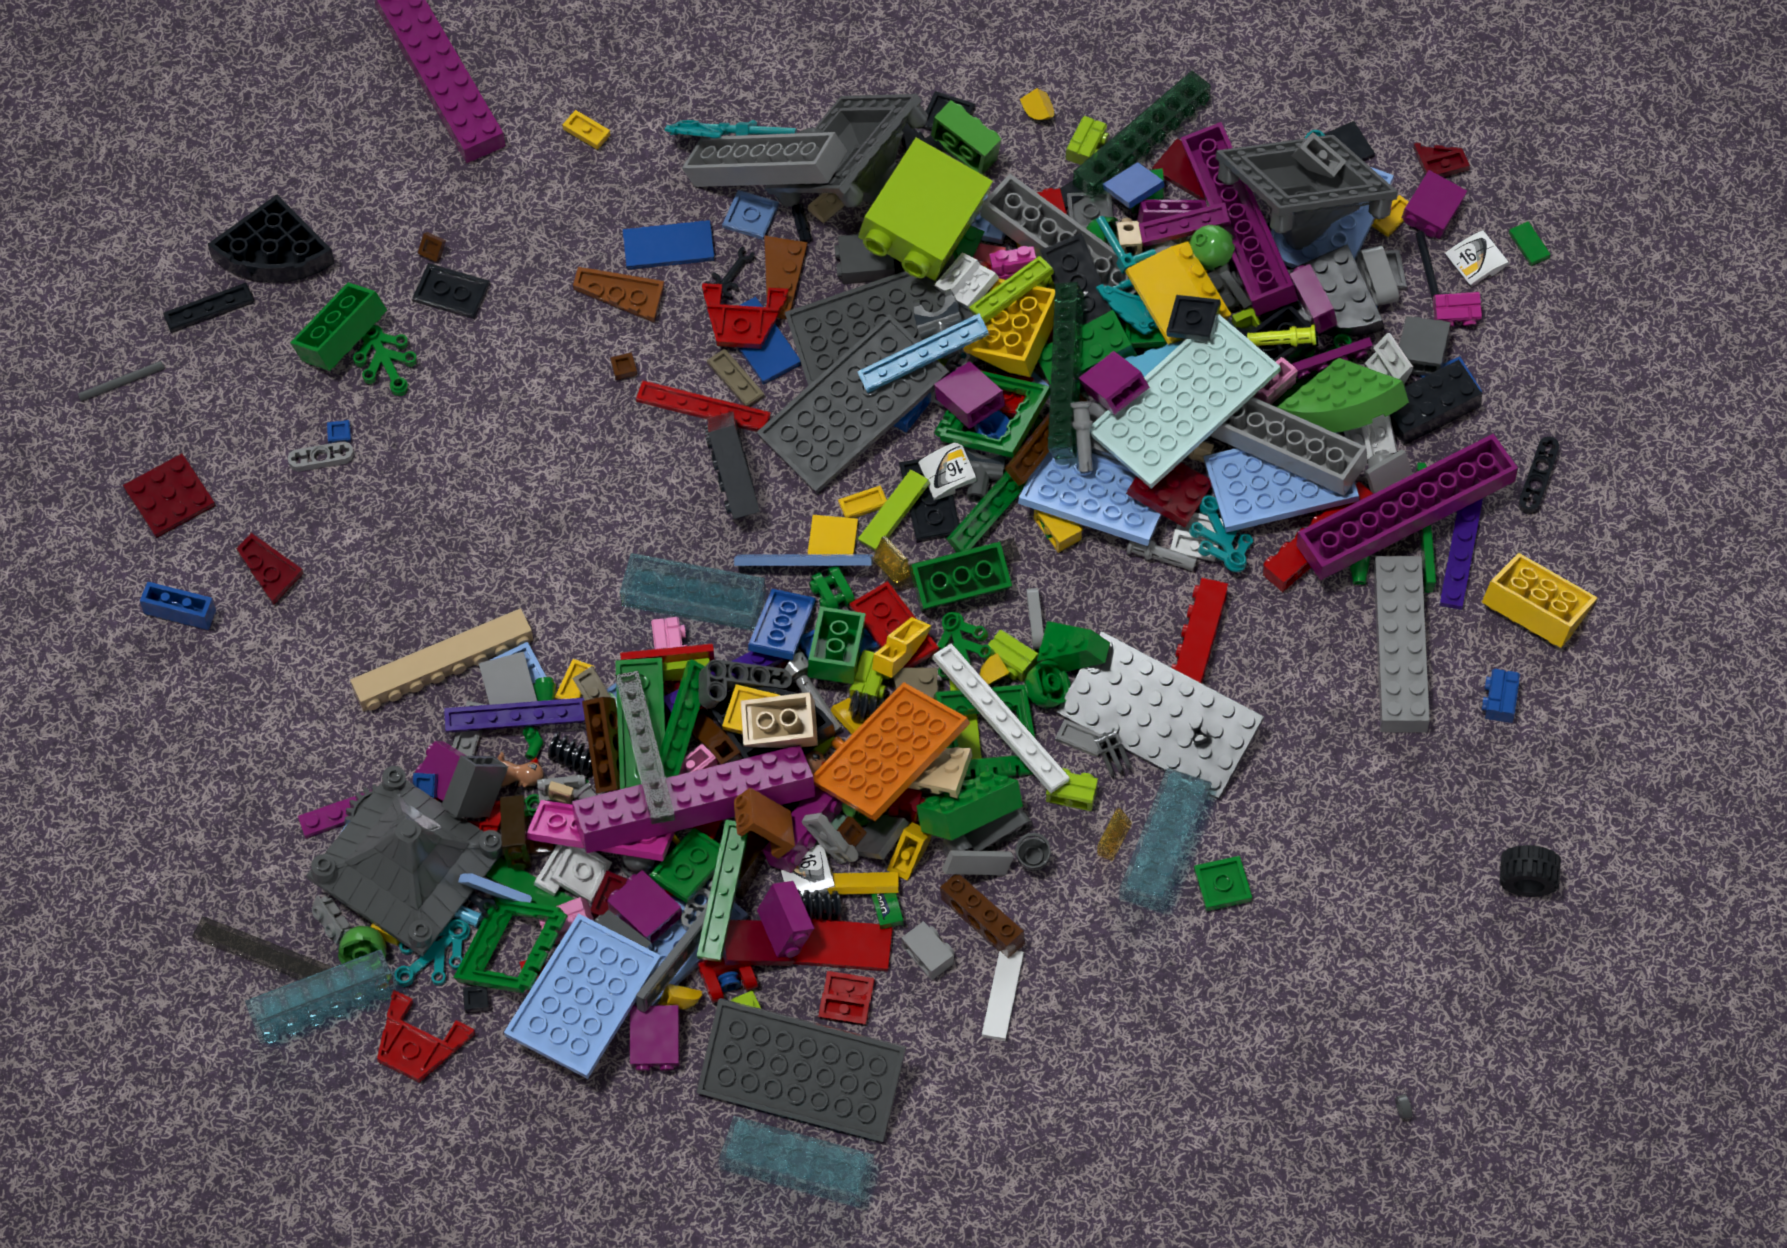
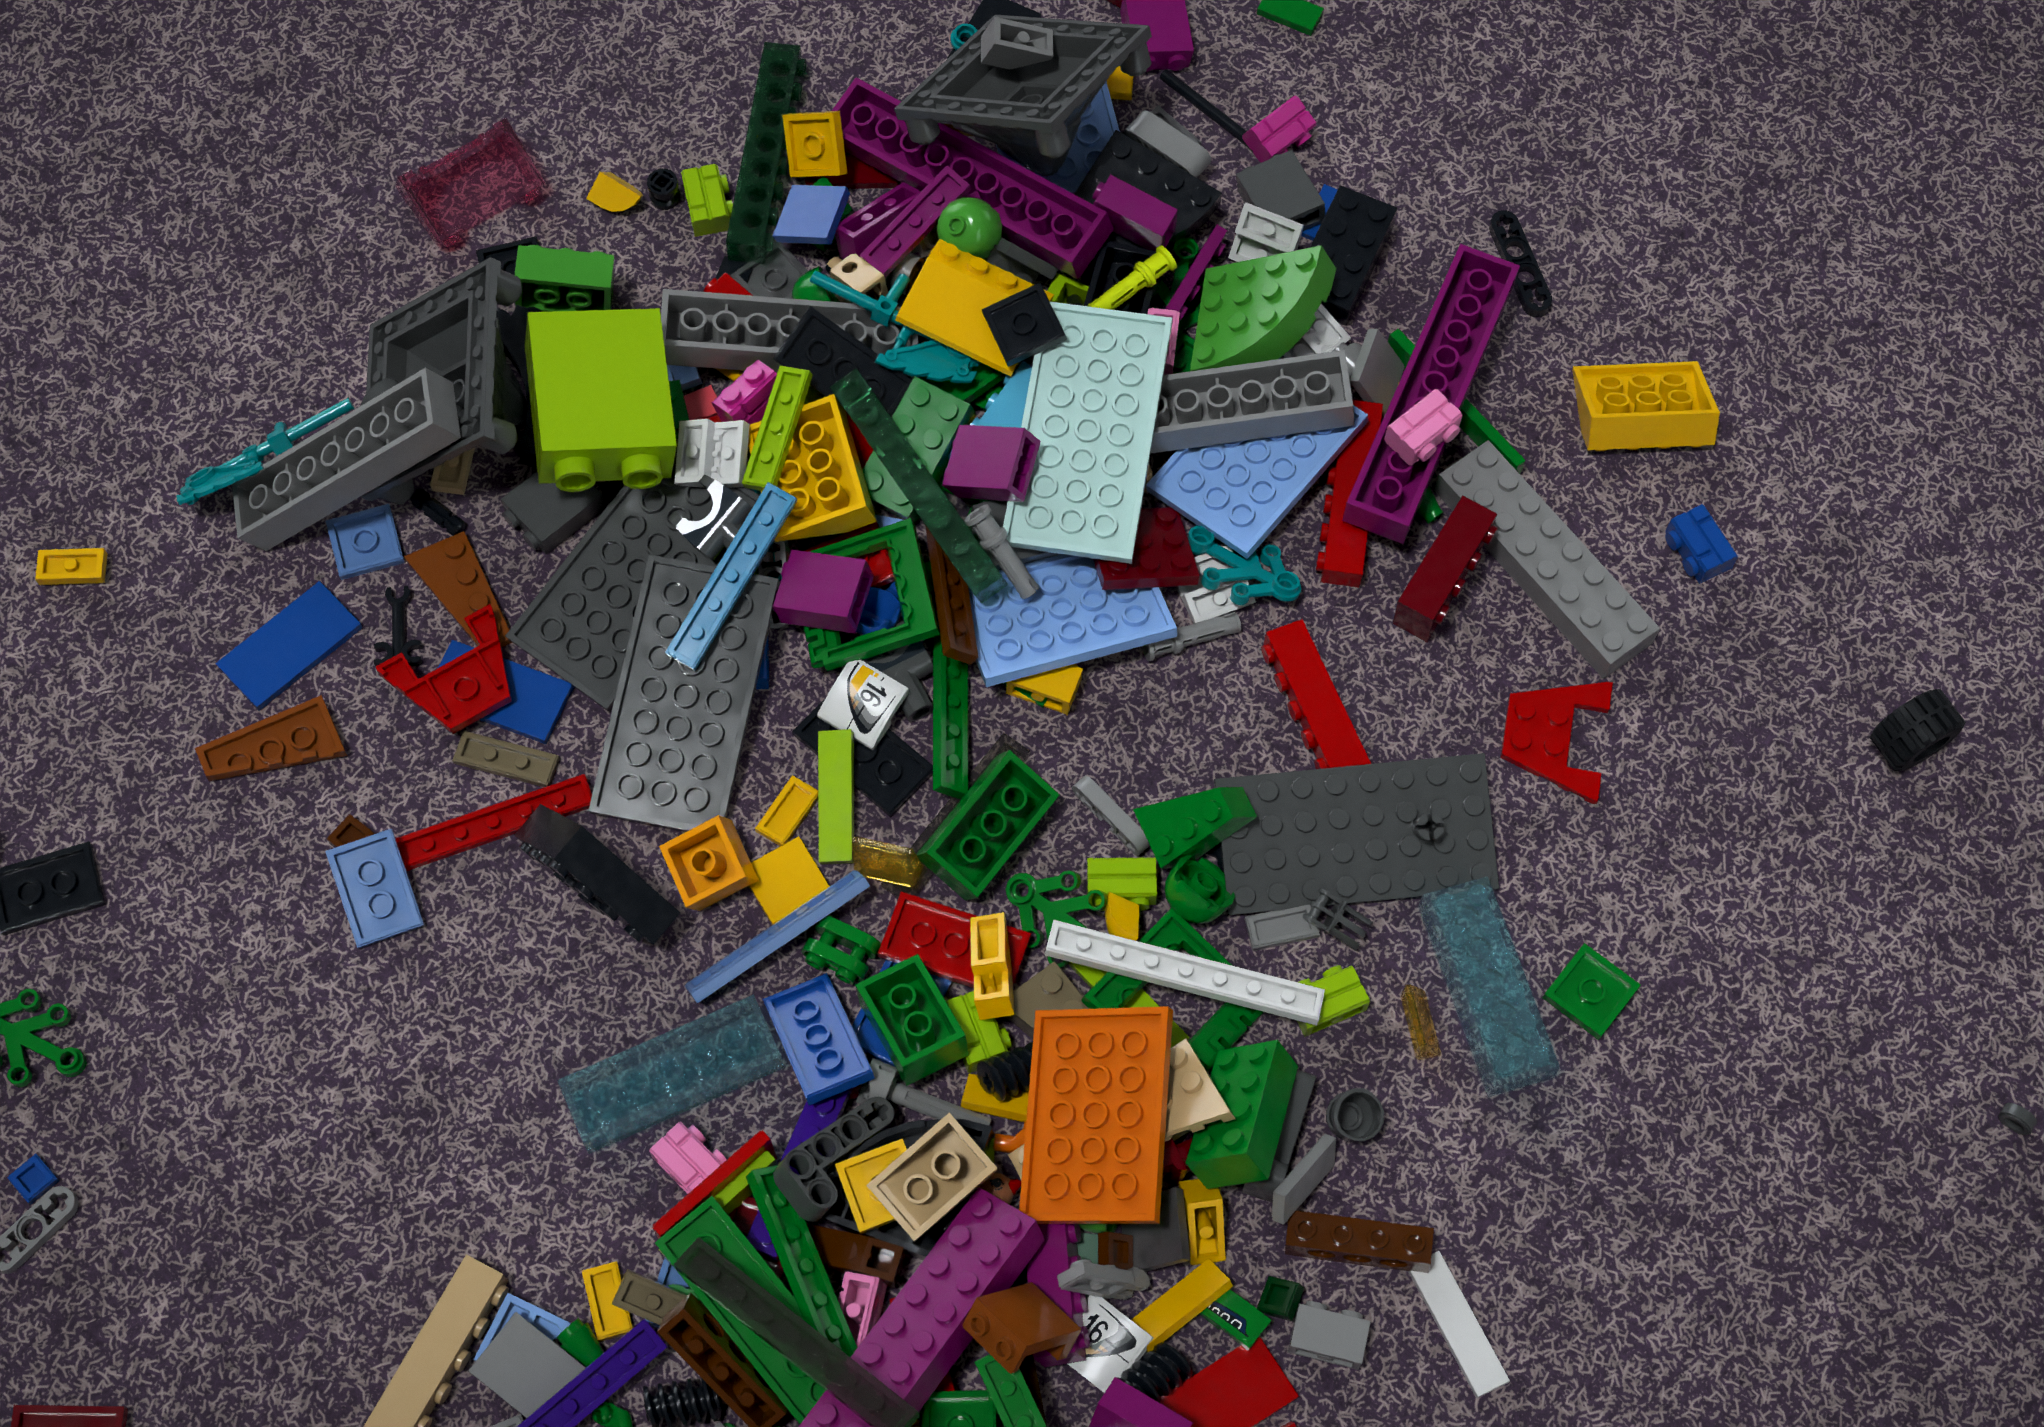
camera: 40 degrees left, 5 degrees up
(615, 399) = (374, 888): none -> medium blue tile
(796, 498) = (708, 863): none -> light orange brick
(918, 914) = (1280, 1298): none -> dark green tile
(959, 51) = (471, 184): none -> clear pink windscreen
(1067, 120) = (663, 189): none -> black wheel
(1168, 146) = (815, 144): none -> yellow plate
(1317, 734) = (1540, 733): none -> red wing
(1330, 607) = (1444, 568): none -> dark red wedge
(1374, 518) = (1424, 427): none -> bright pink brick
(1460, 556) = (1520, 417): dark purple plate -> none
(1477, 258) = (1249, 62): slope -> none

